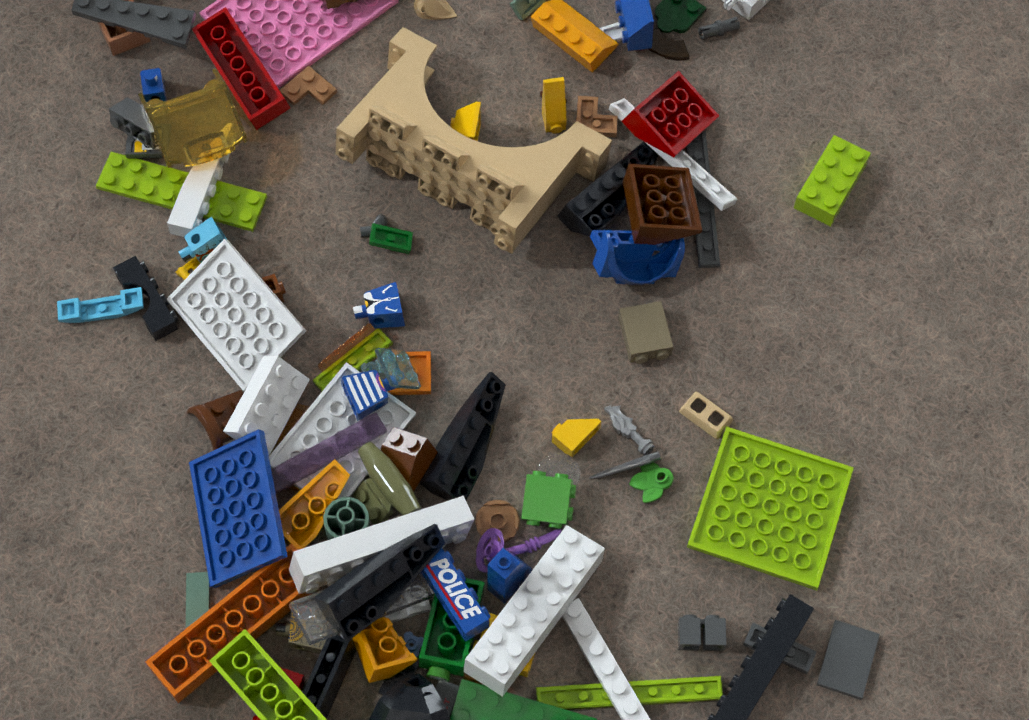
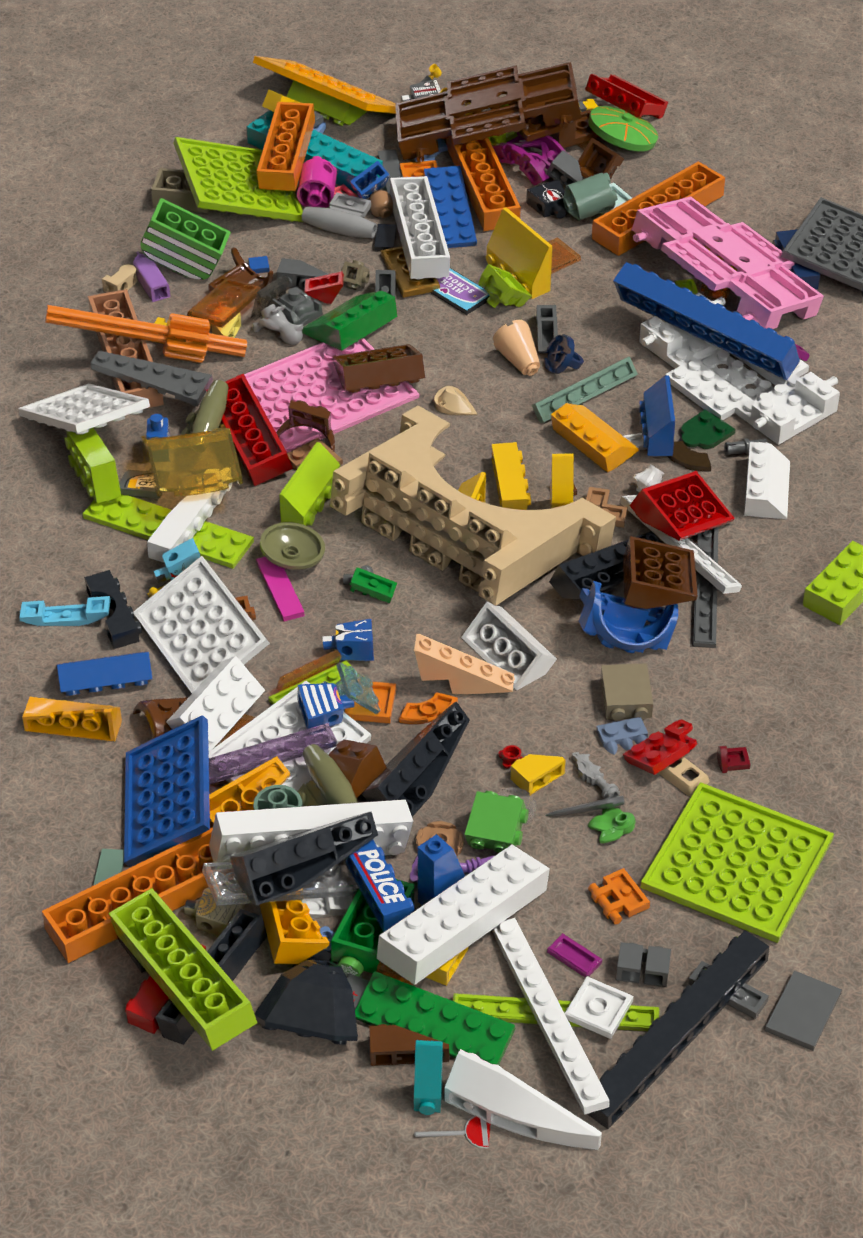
camera: 10 degrees right, 20 degrees down
(74, 67) = (84, 408): none -> white plate
(95, 130) = (93, 465): none -> lime brick
(131, 431) = (72, 719): none -> light orange wedge
(132, 120) = (132, 461): dark grey slope -> none
(151, 372) = (104, 672): none -> blue slope
(196, 64) = (210, 410): none -> olive plate
(292, 49) = (305, 415): none -> reddish brown piece
(302, 249) = (280, 589): none -> dark pink tile
(309, 195) = (292, 546): none -> olive dish
(312, 133) = (308, 487): none -> lime slope
(464, 375) = (426, 711): none -> orange tile
(490, 332) = (463, 671): none -> light nougat slope
(500, 94) = (510, 476): none -> yellow brick
(528, 294) = (508, 645): none -> white slope
(549, 412) = (510, 755): none -> red plate
(634, 82) = (648, 477): none -> white rock
(637, 630) = (574, 955): none -> magenta tile
(647, 378) = (622, 733): none -> sand blue plate
(668, 686) = (598, 1007): none -> white tile
(674, 556) = (625, 892): none -> orange plate
(693, 387) = (662, 749): none -> red plate
(743, 69) = (766, 482): none -> white slope
(751, 393) = (732, 758): none -> dark red tile

